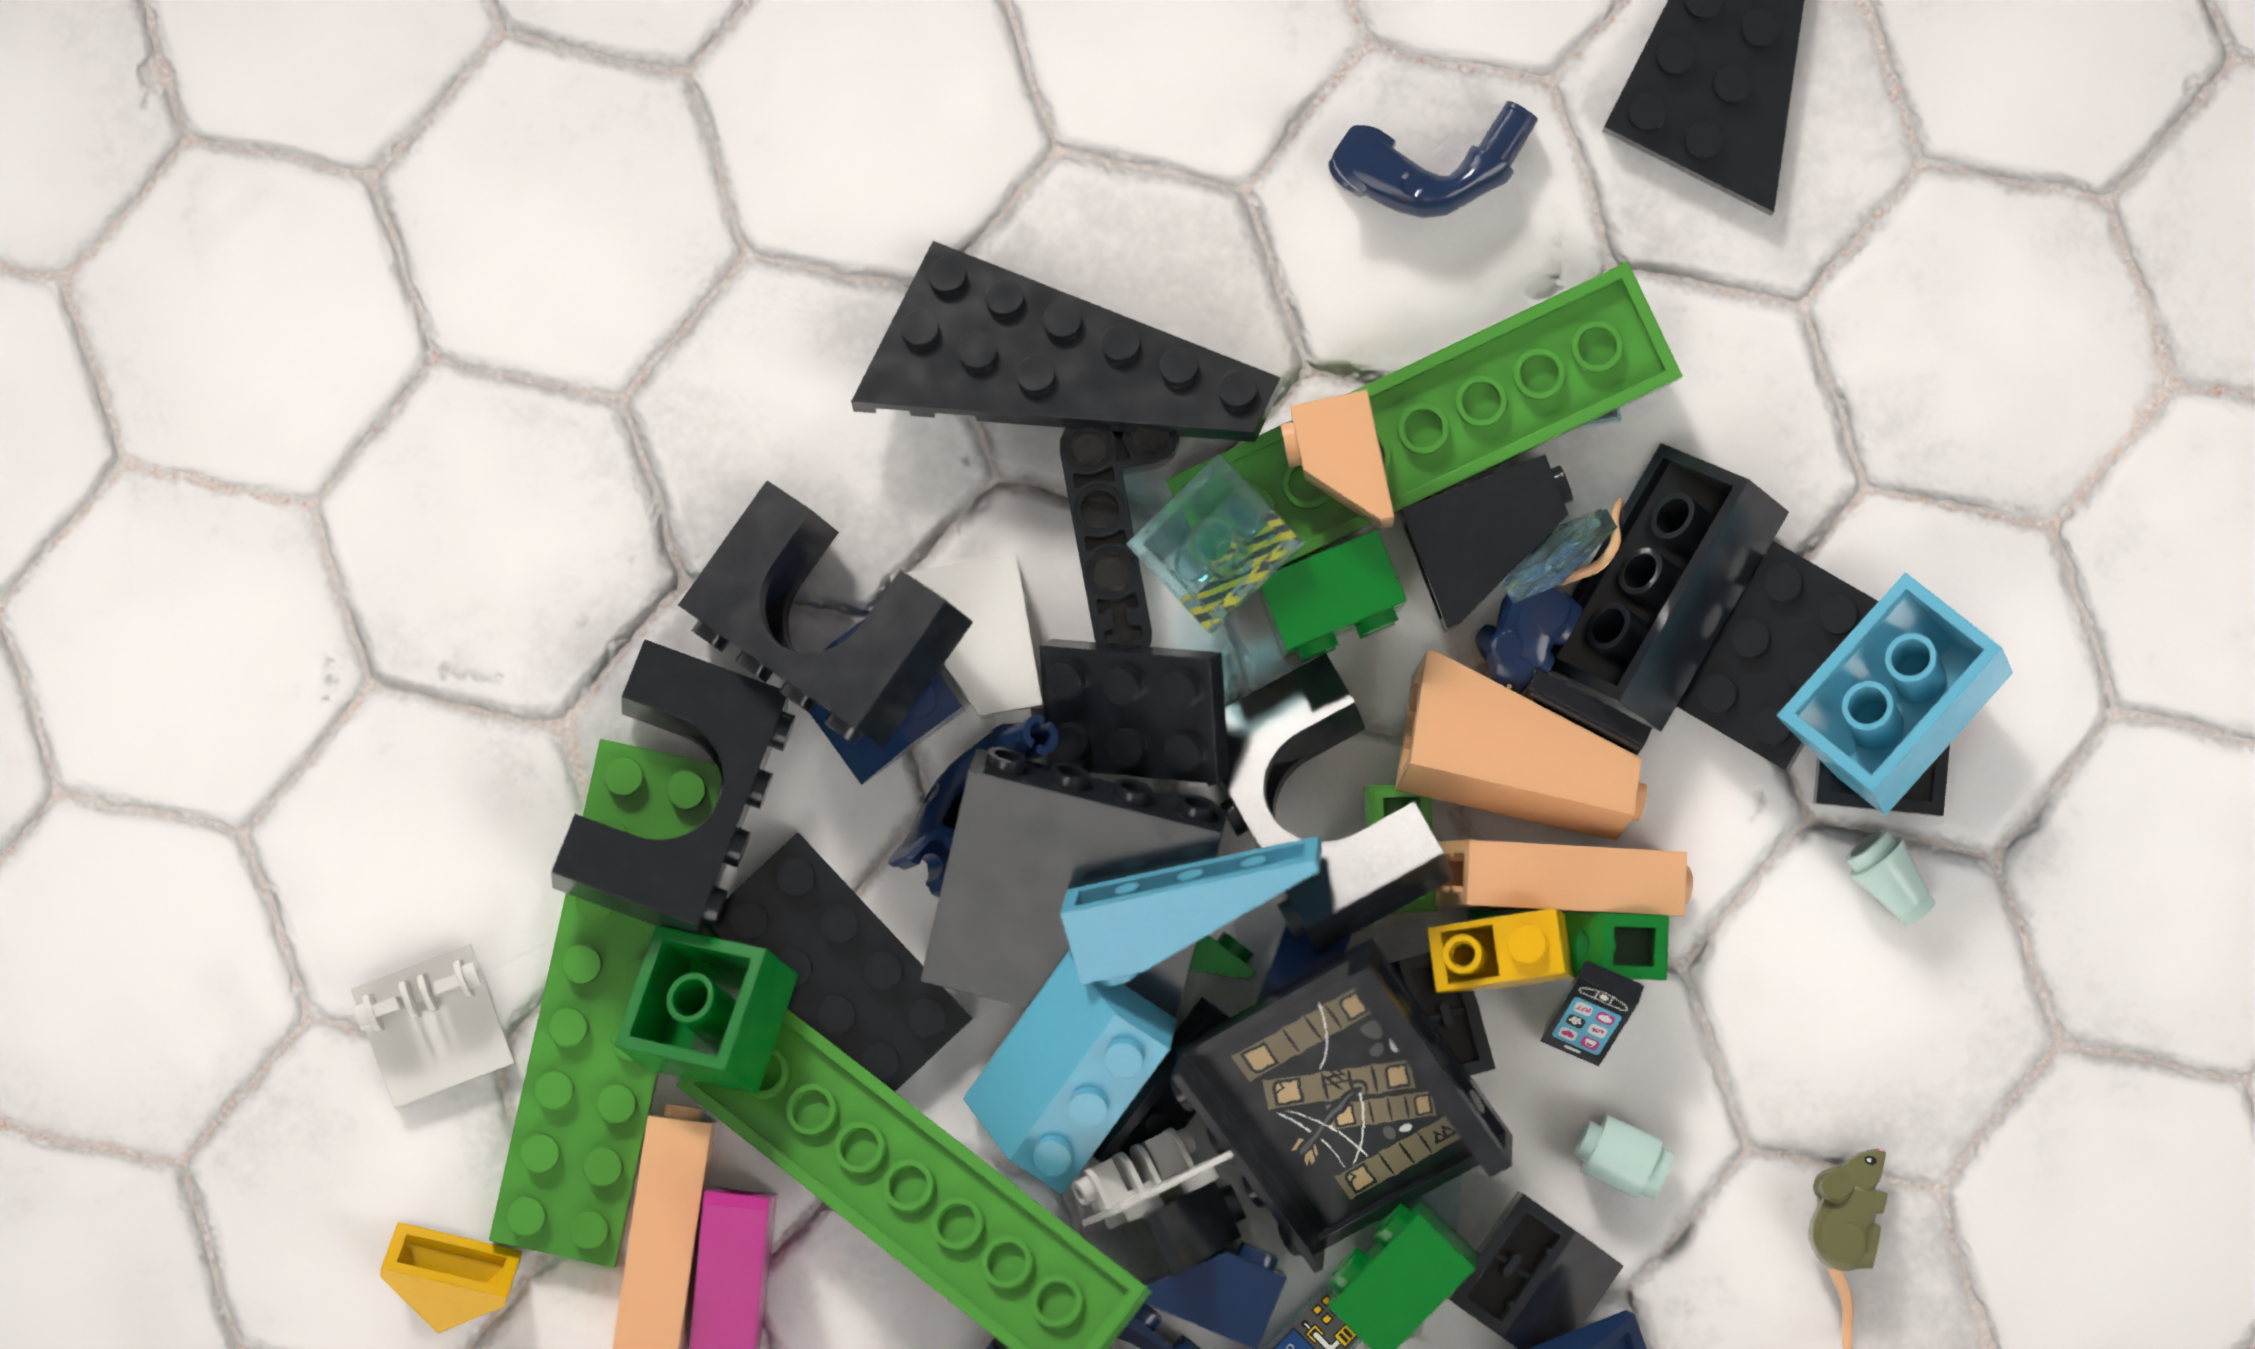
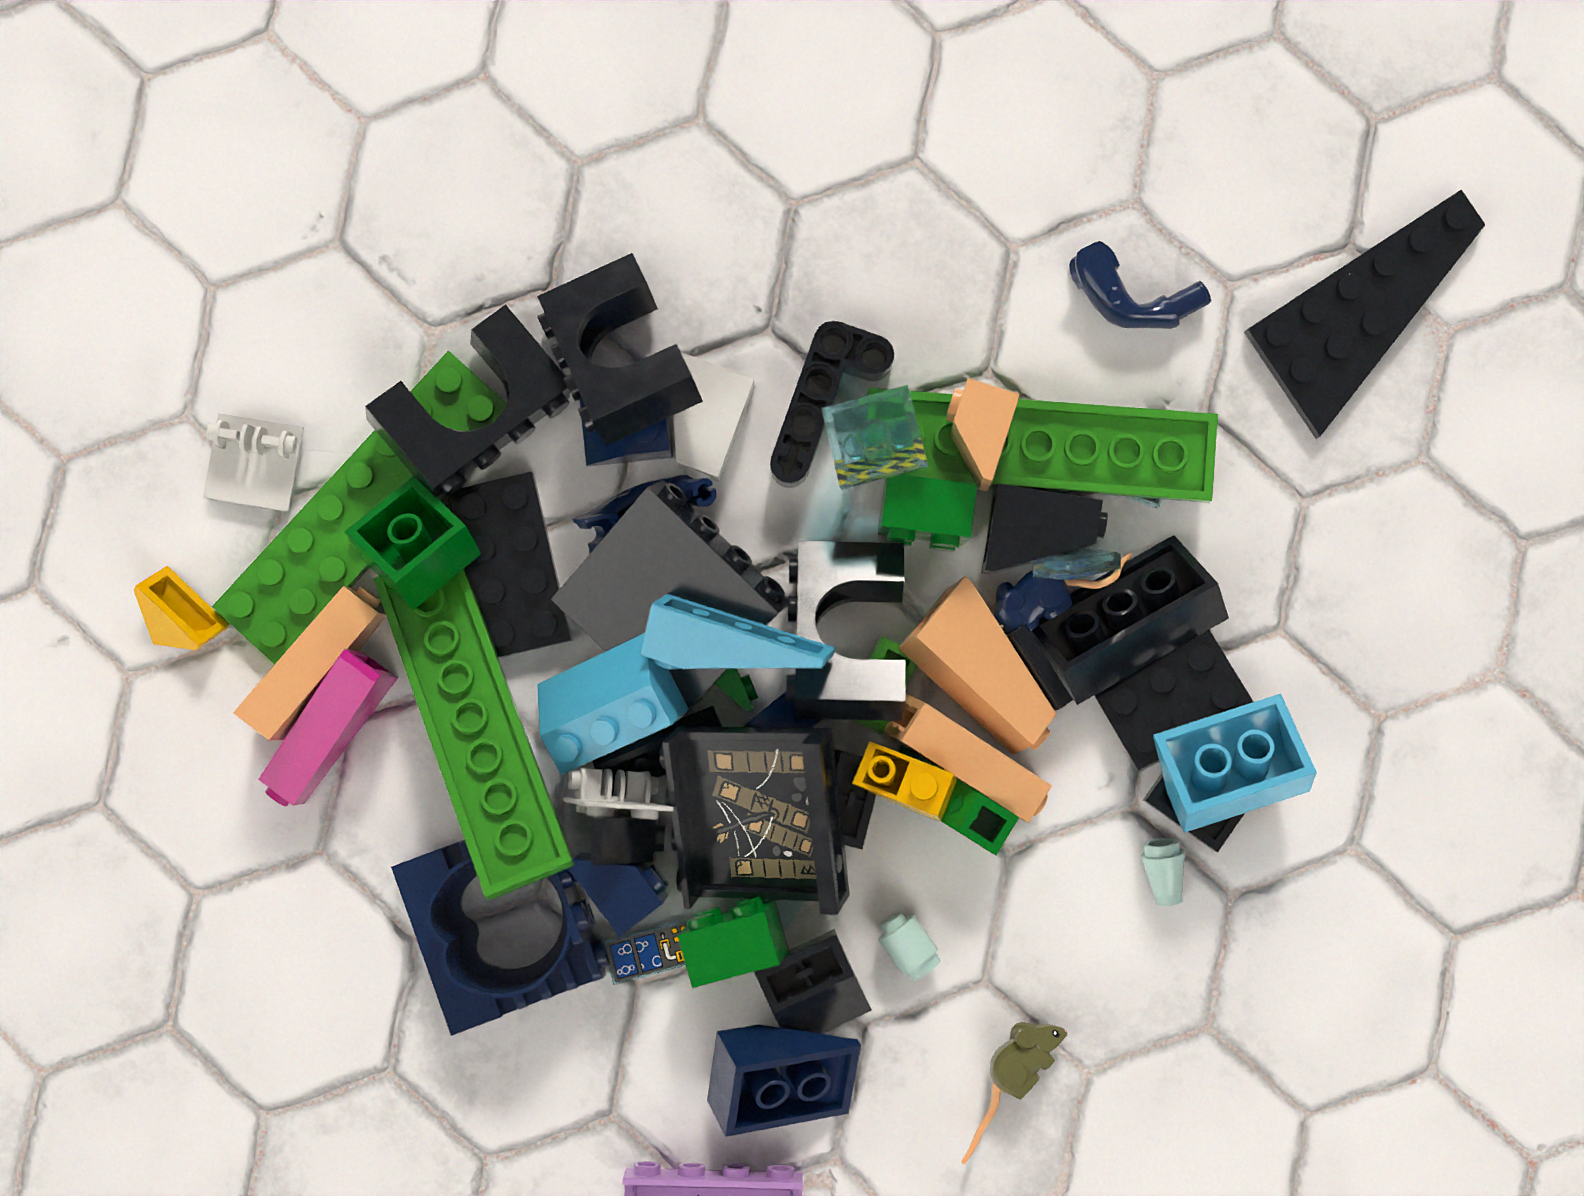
camera: 30 degrees right, 0 degrees up
(1033, 355) = (834, 270): black wing -> none
(1136, 710) = (771, 512): black plate -> none
(1592, 1013) = (940, 849): tile -> none

